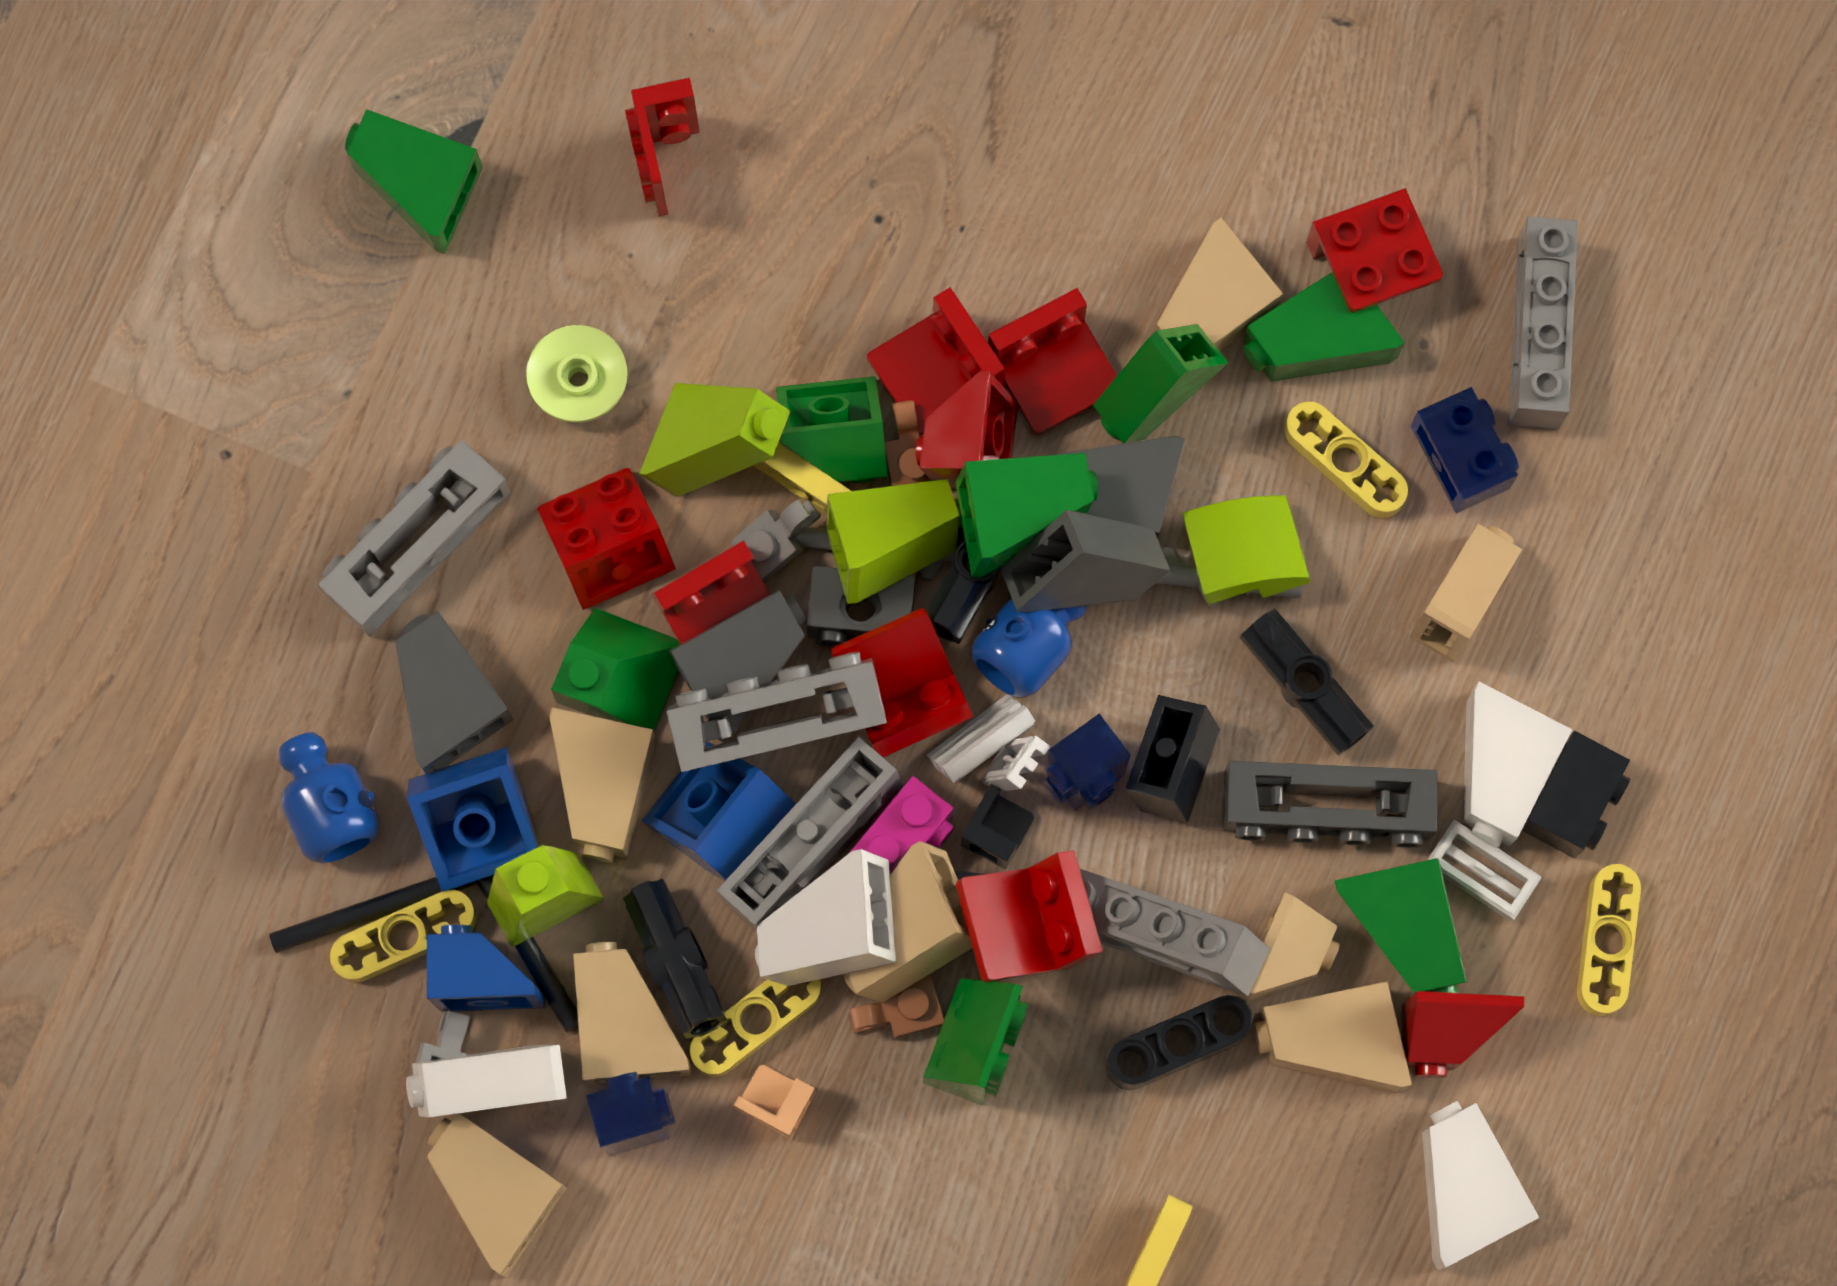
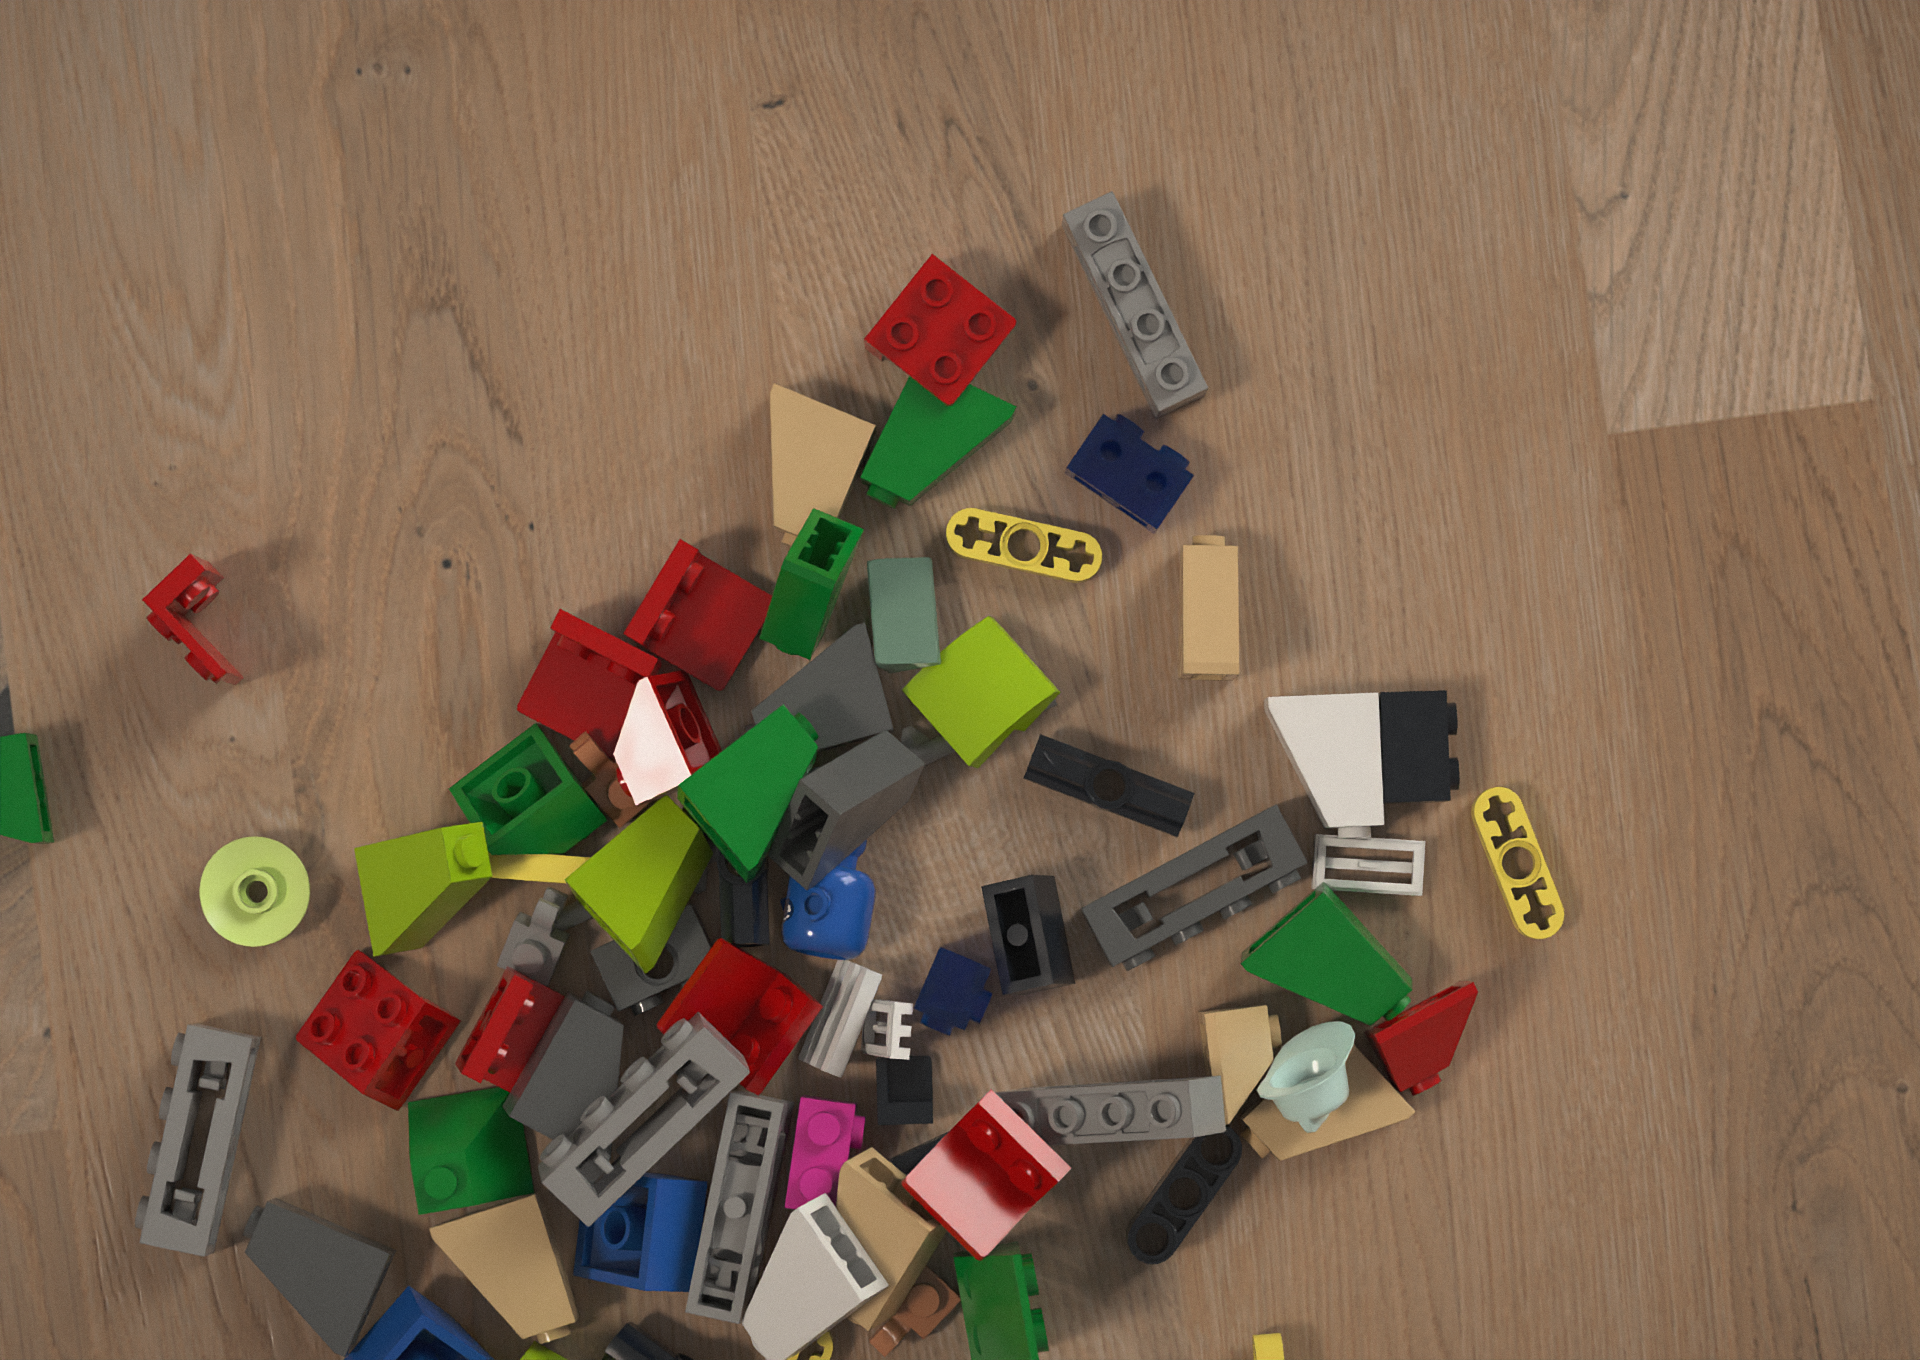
camera: 30 degrees left, 10 degrees up
(1218, 453) = (903, 613): none -> sand green slope
(1342, 1001) = (1310, 1074): none -> light aqua piece
(1469, 1186) = (1517, 1168): white slope -> none

